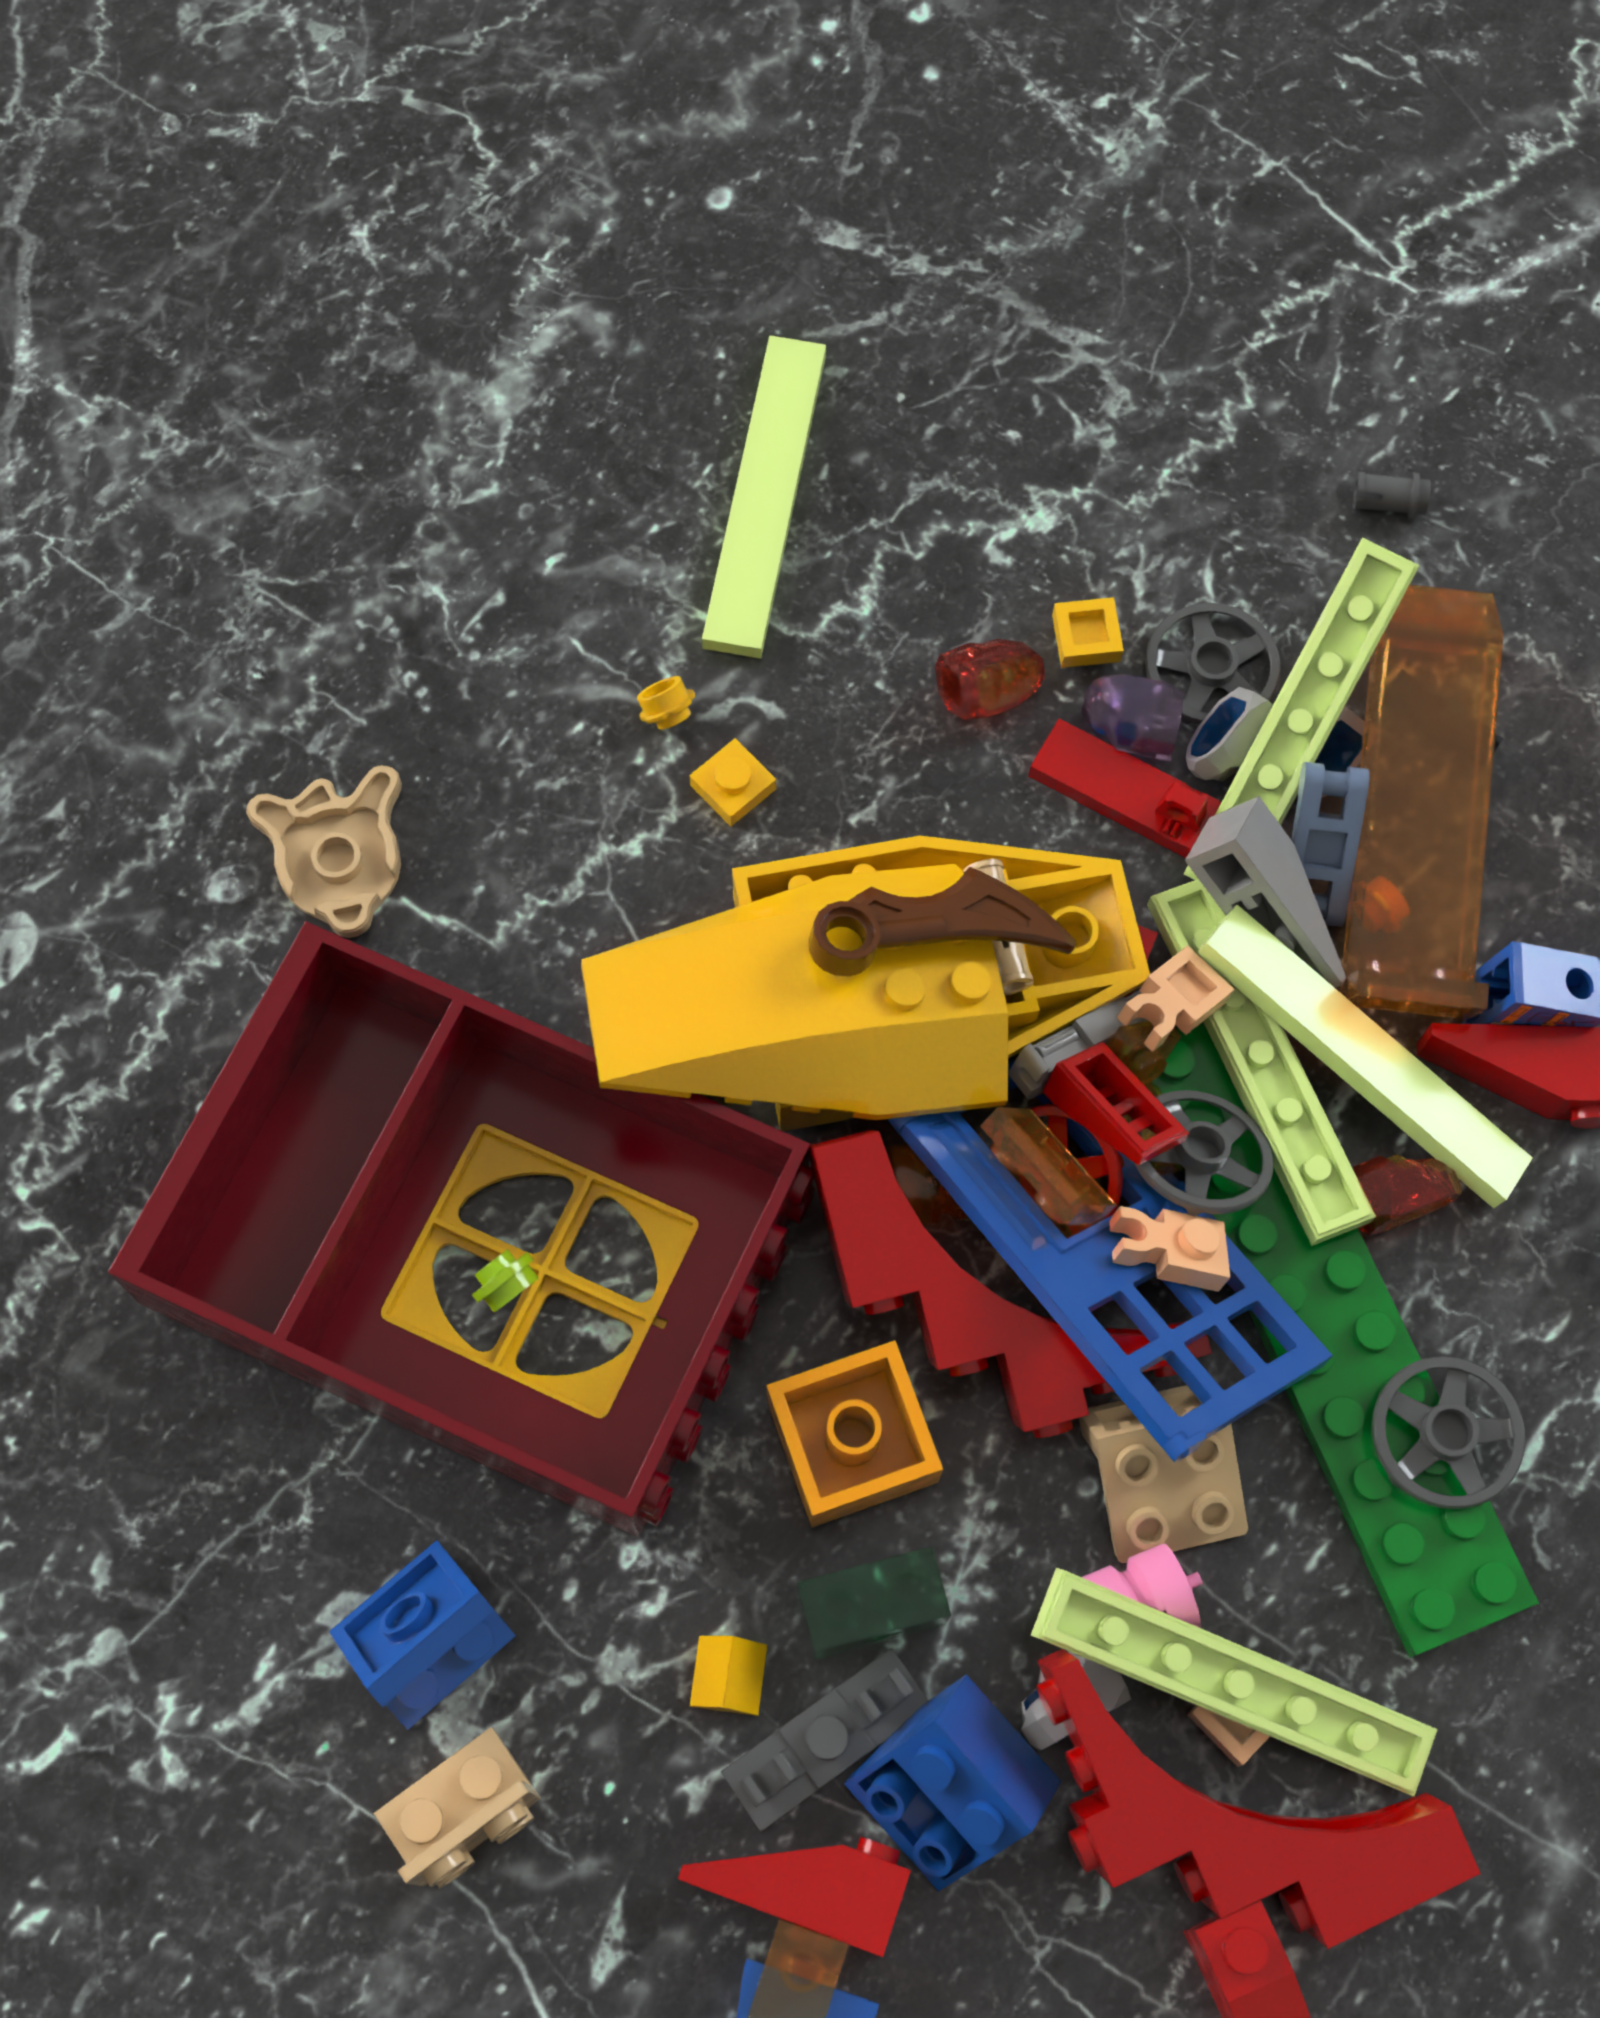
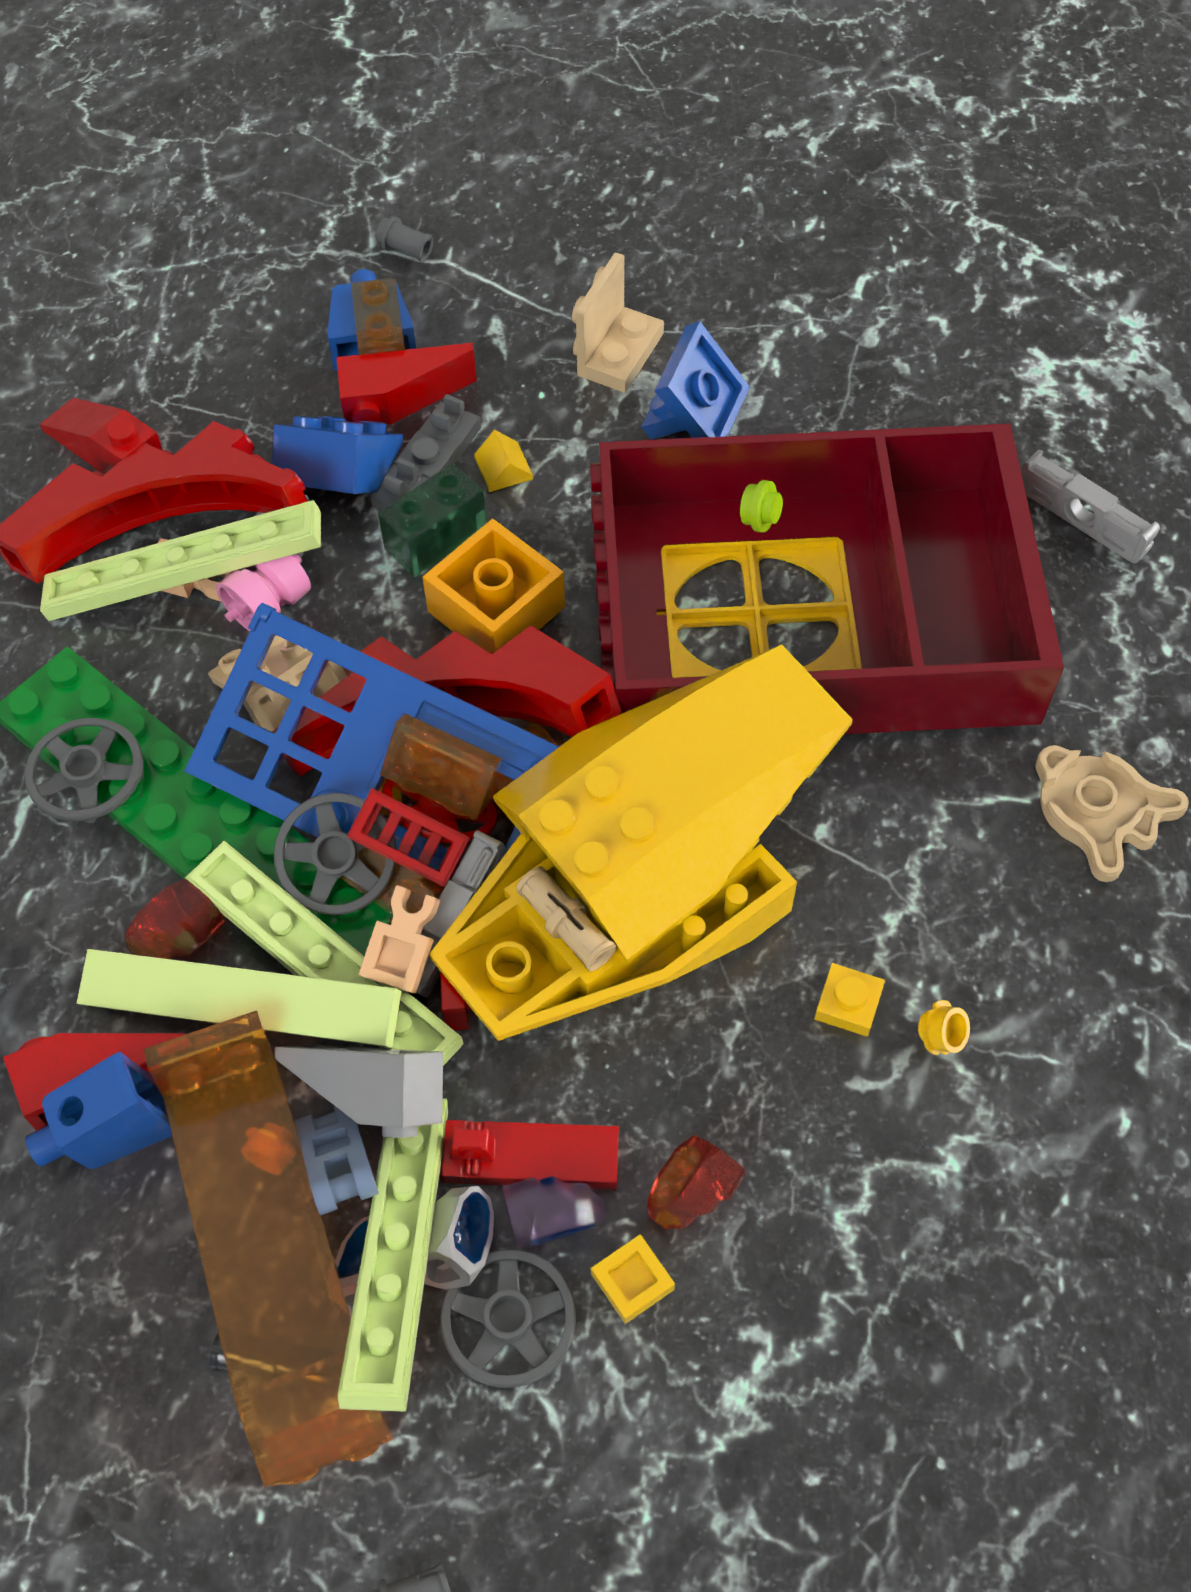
camera: 155 degrees right, 10 degrees down
(59, 1203) = (1111, 523): none -> light grey piece
(764, 498) = (997, 1286): yellowish green tile -> none
(968, 910) = (583, 862): reddish brown piece -> none
(1180, 1245) = (322, 769): light nougat plate -> none

